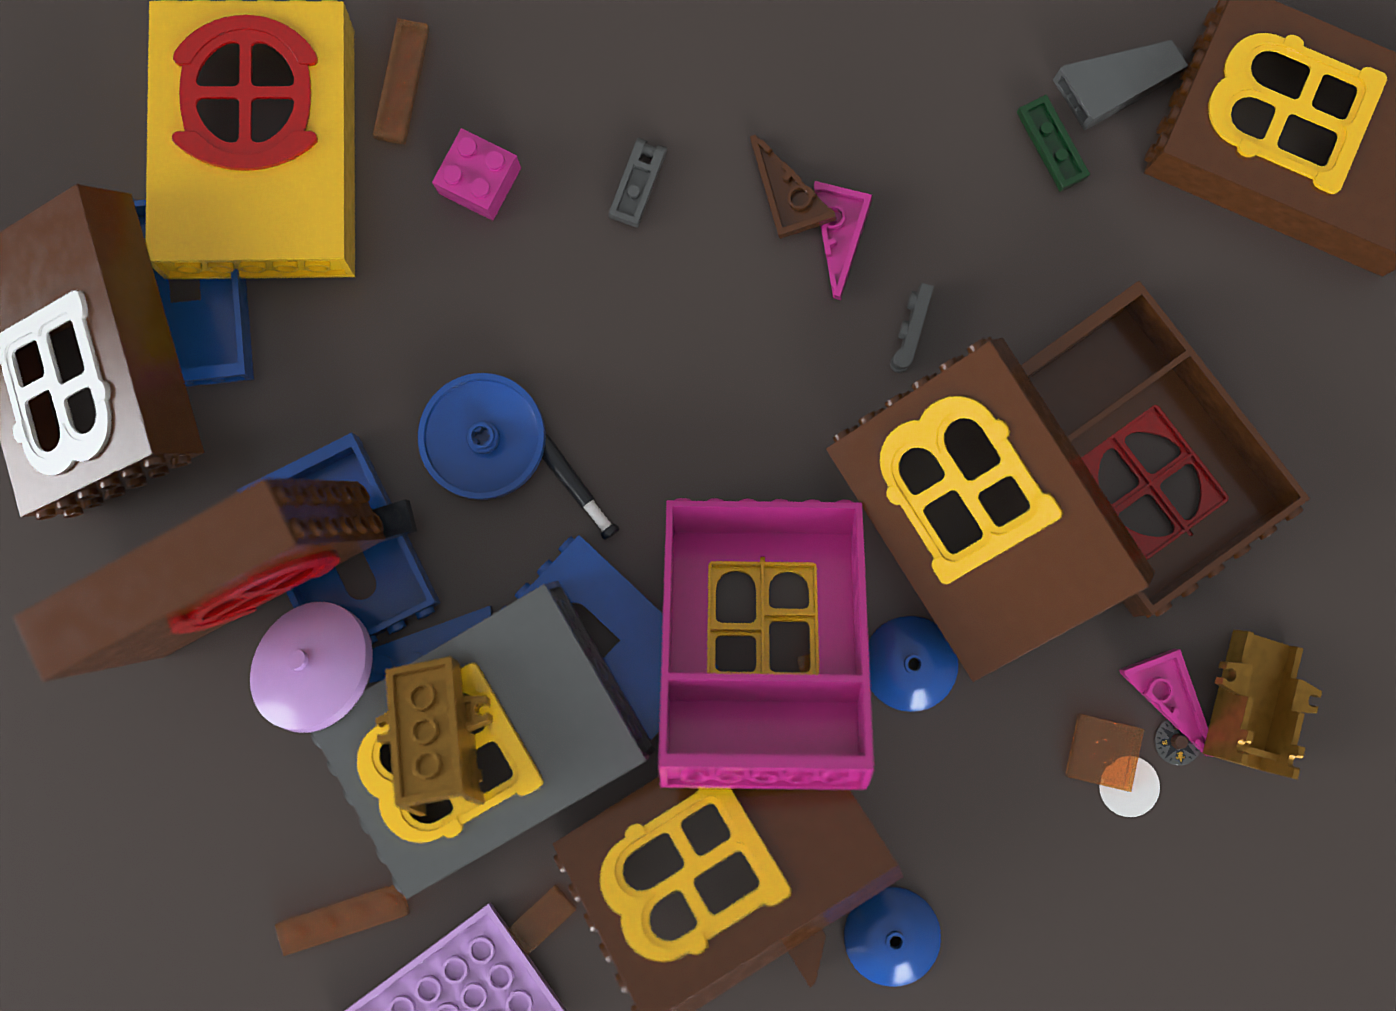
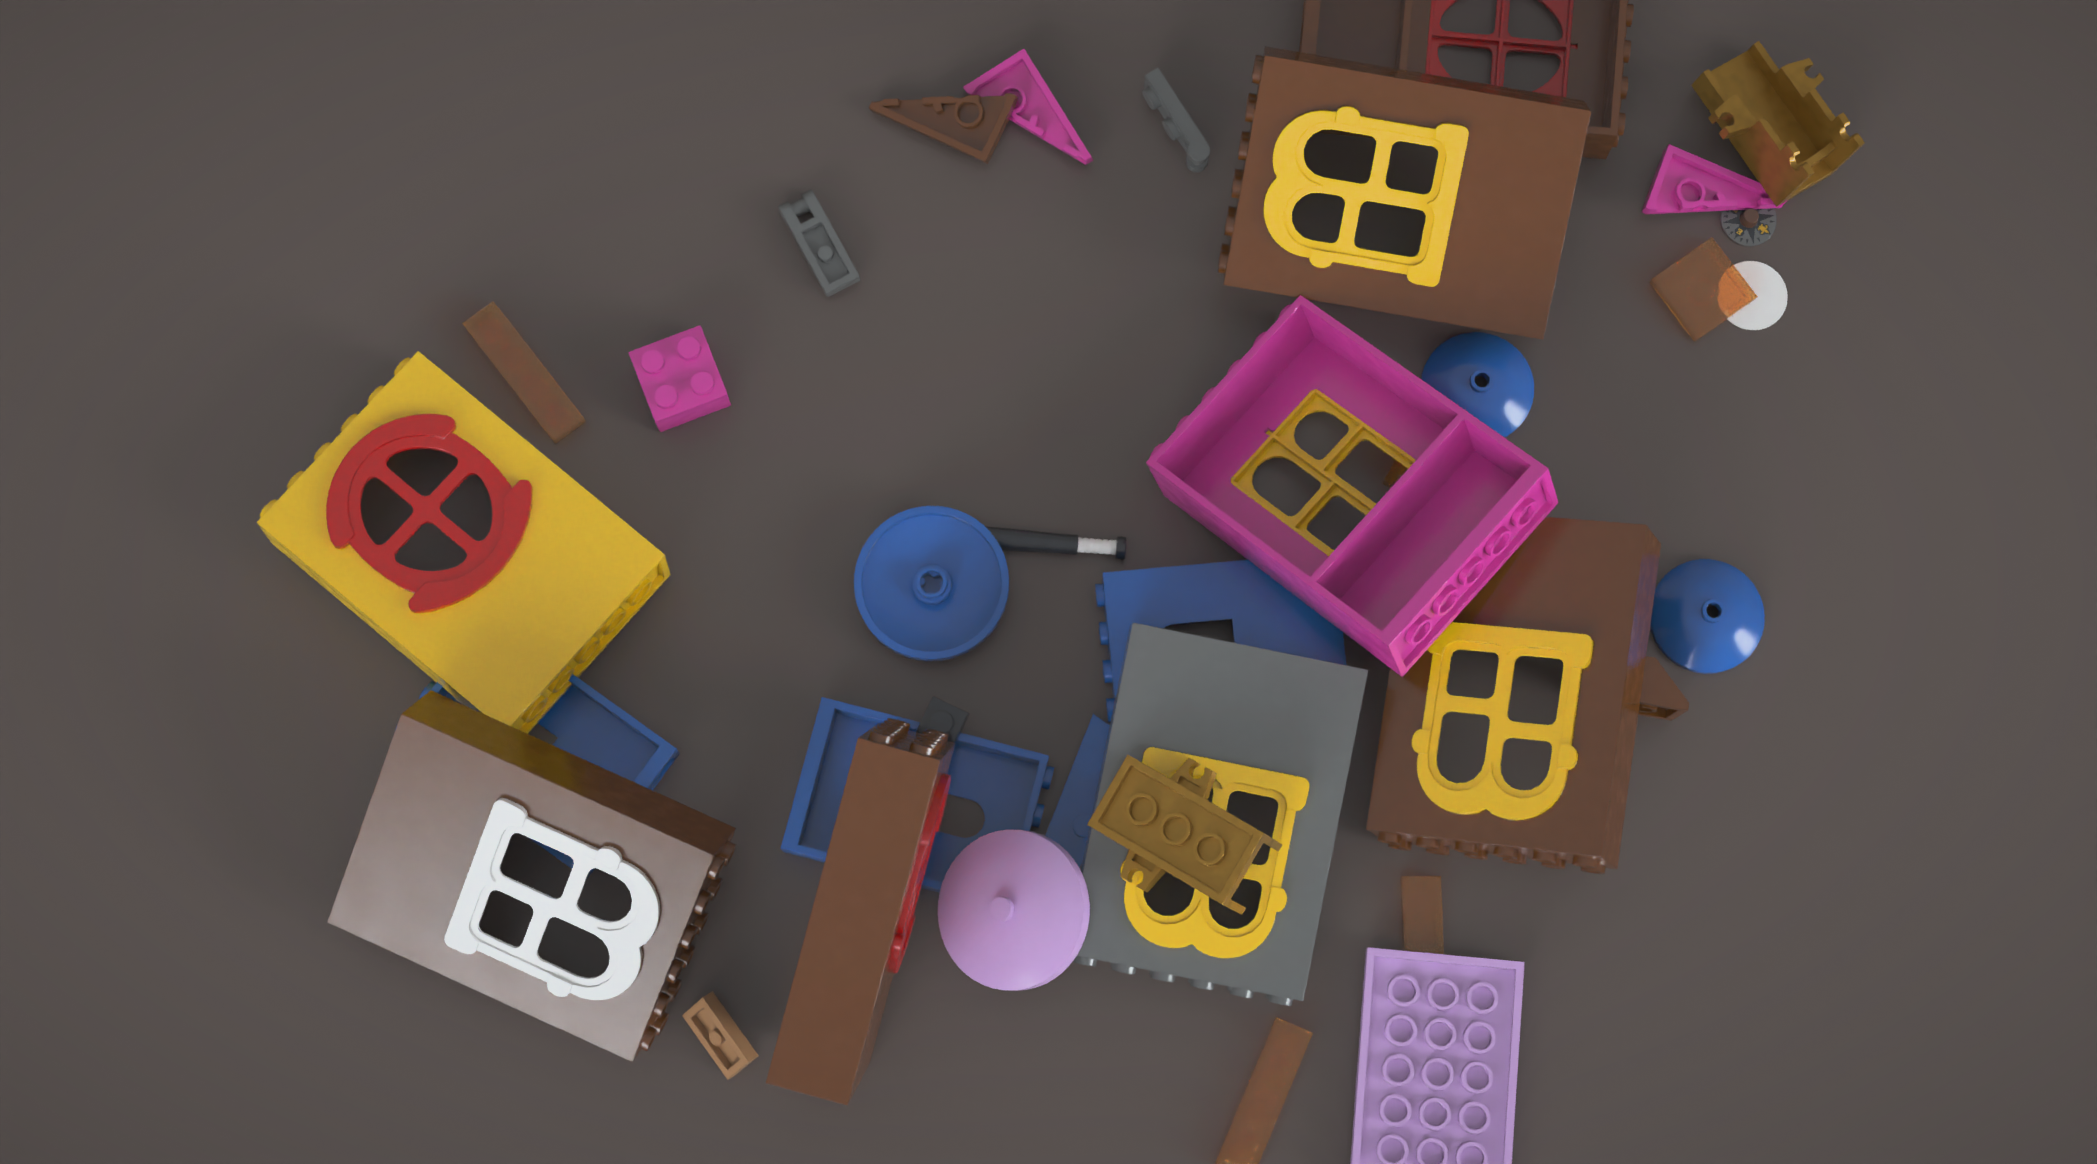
camera: 55 degrees left, 5 degrees down
(101, 543) = (720, 1035): none -> medium nougat plate

